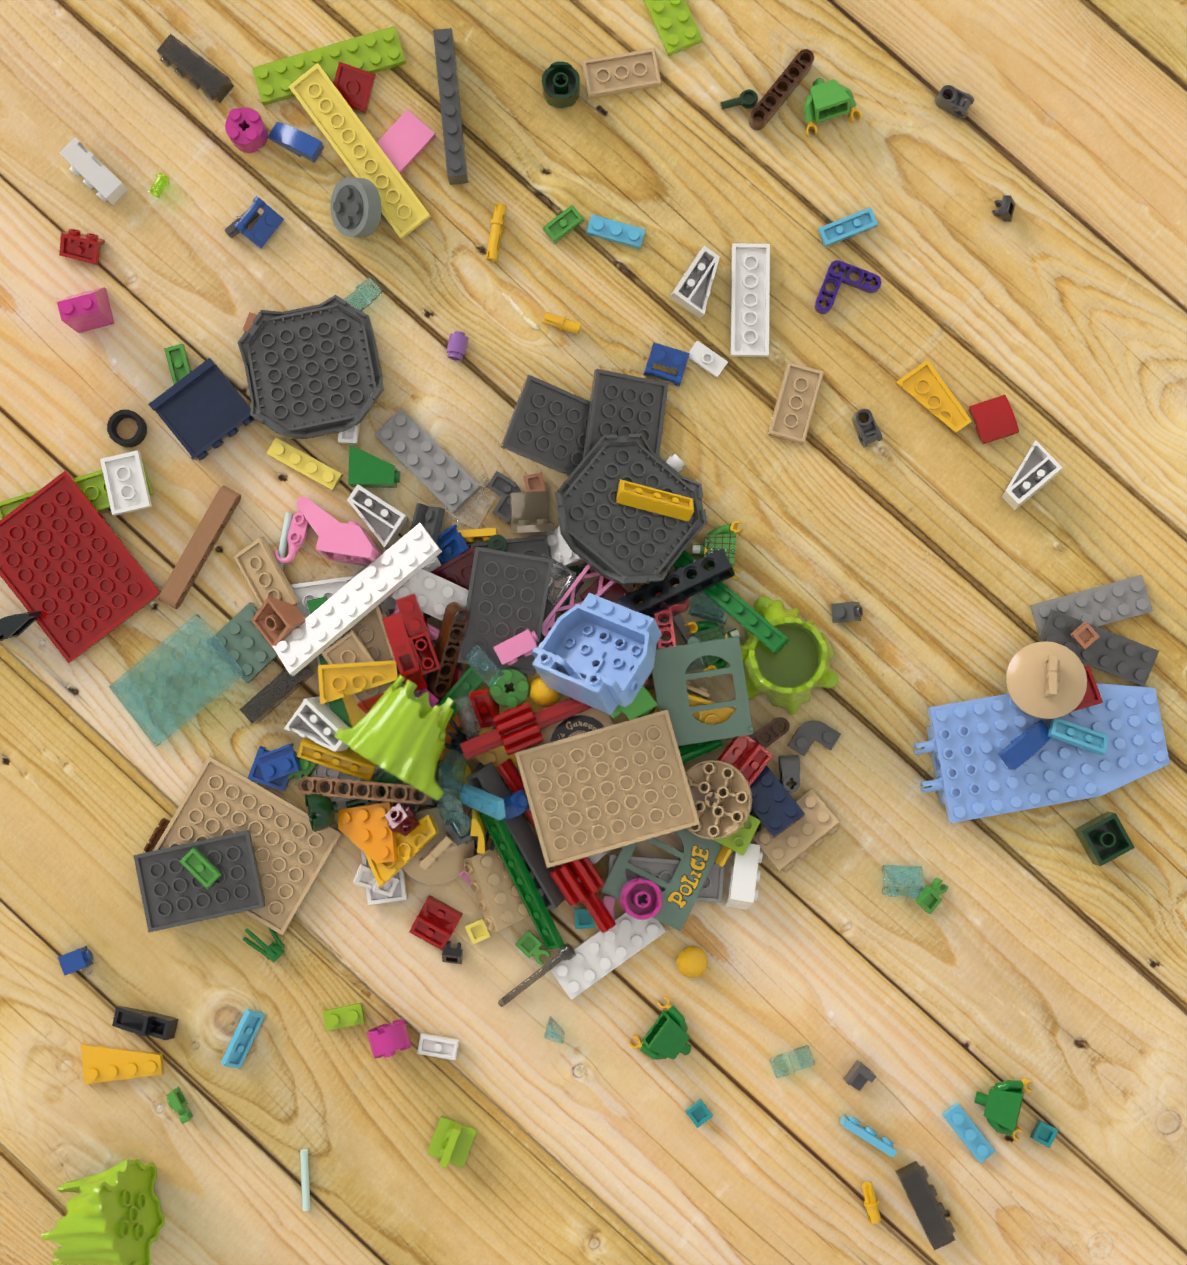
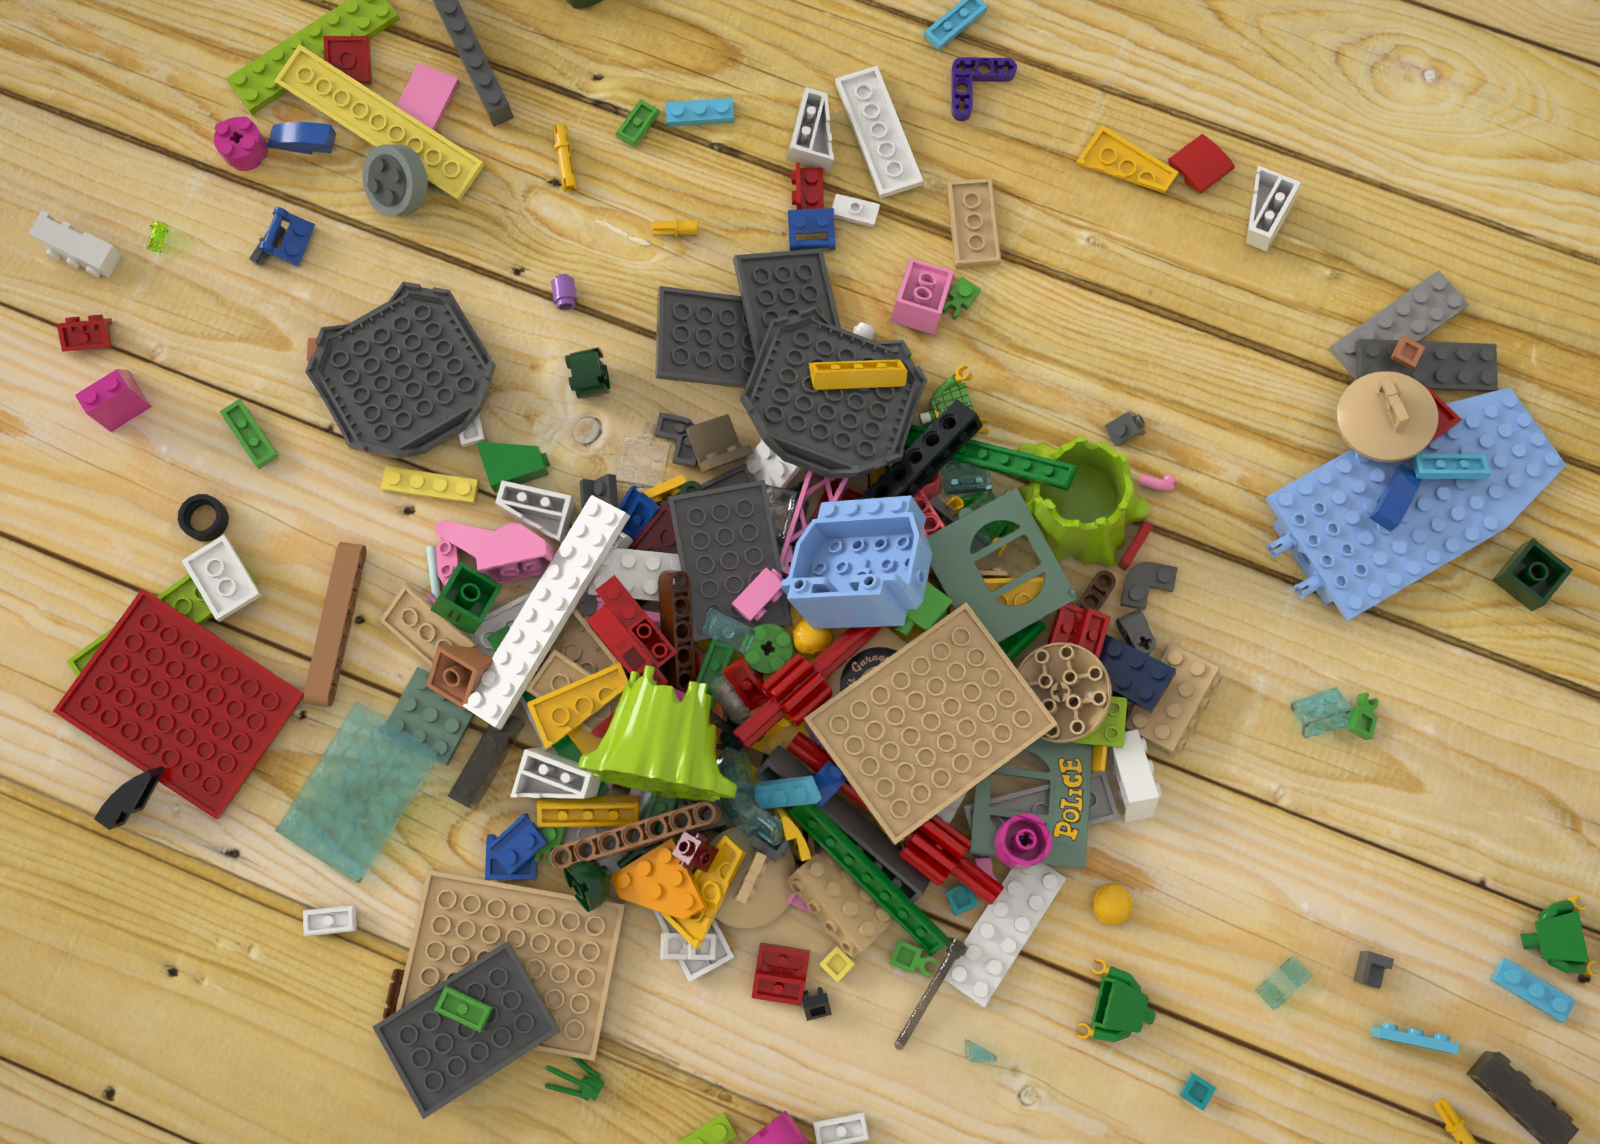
camera: 20 degrees left, 10 degrees down
(127, 766) = (329, 920): none -> white plate
(194, 68) = (160, 100): clear smoke brick -> none
(202, 409) = (287, 463): dark blue panel -> none
(301, 566) = (466, 598): none -> green brick
(364, 295) = (437, 272): clear light blue slope -> none
(427, 461) = (575, 429): light grey plate -> none
(452, 420) = (588, 373): none -> dark green brick
(534, 482) = (708, 409): nougat plate -> none
(677, 328) = (809, 188): none -> red bracket
(732, 449) = (922, 296): none -> bright pink slope
(763, 459) = (962, 296): none -> bright green plate
(815, 706) = (1135, 545): none -> red tile
(853, 665) = (1154, 483): none -> bright pink arm
(866, 429) = (1065, 224): dark grey piece -> none

